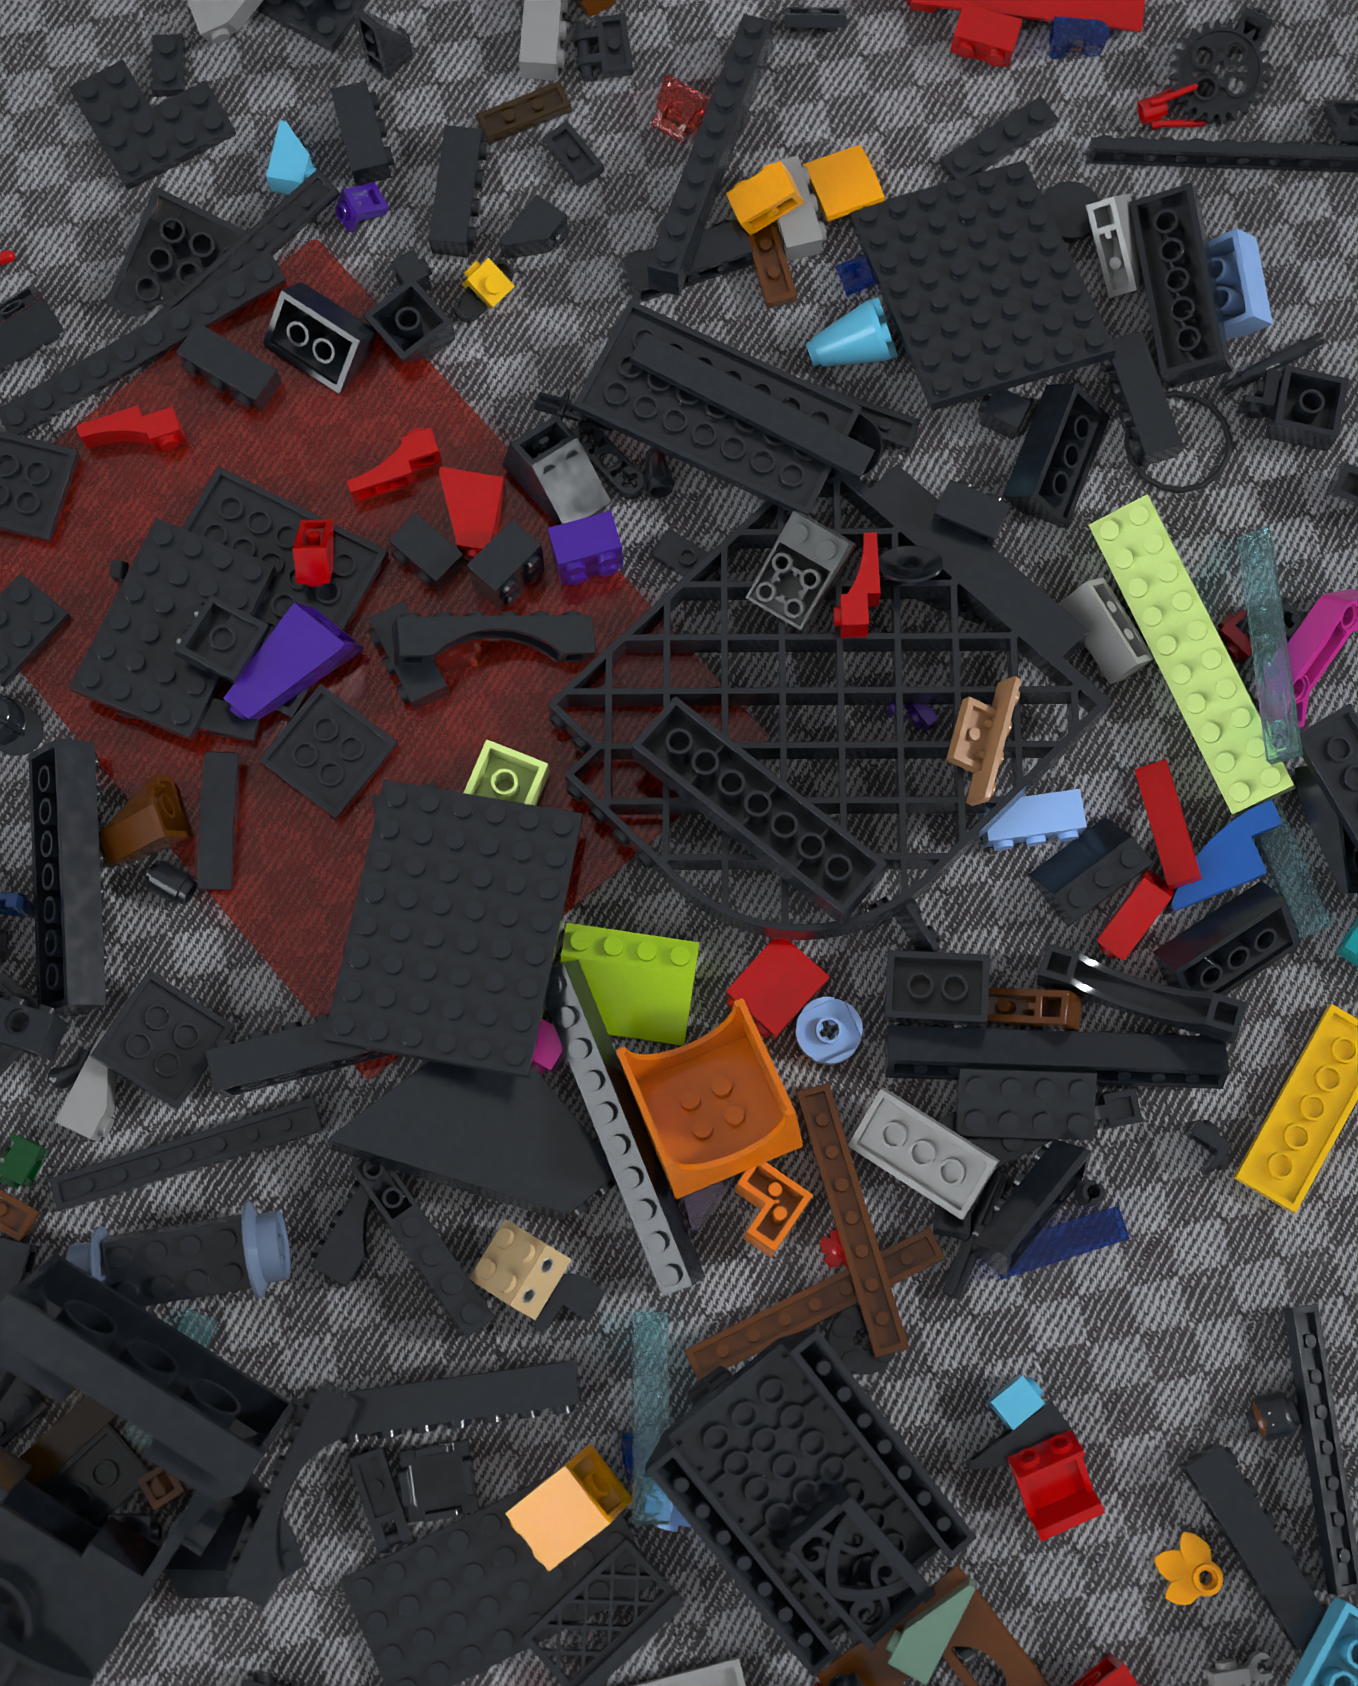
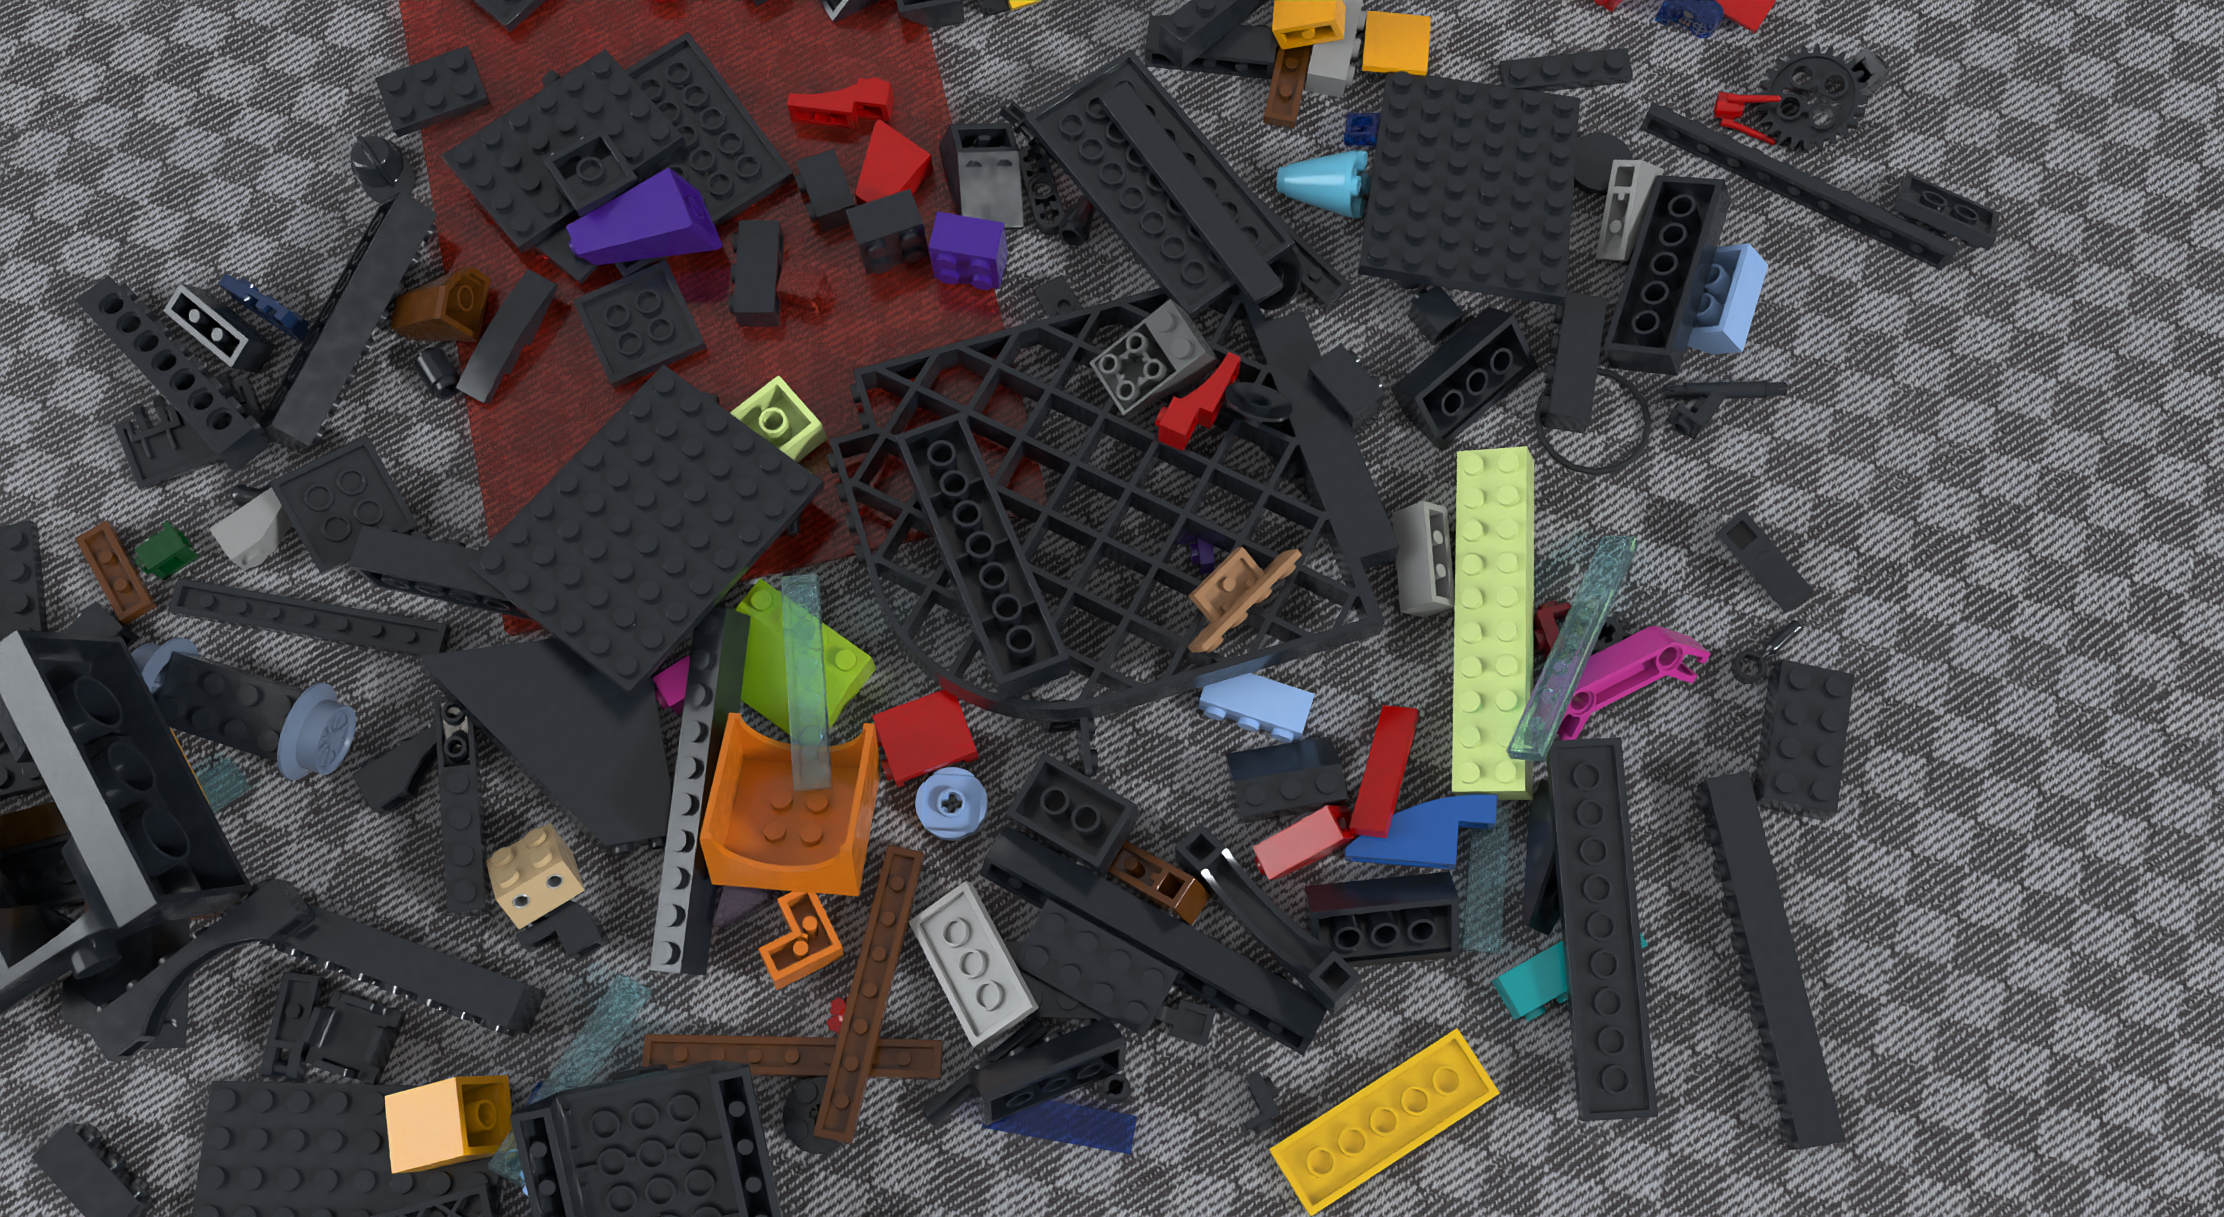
camera: 30 degrees right, 5 degrees down
(314, 552) = (722, 141): red slope -> none
(559, 637) = (773, 258): black arch -> none
(661, 991) = (806, 683): none -> clear light blue plate
(950, 1225) = (962, 1050): black plate -> none
(1307, 408) = (1734, 444): black brick -> none

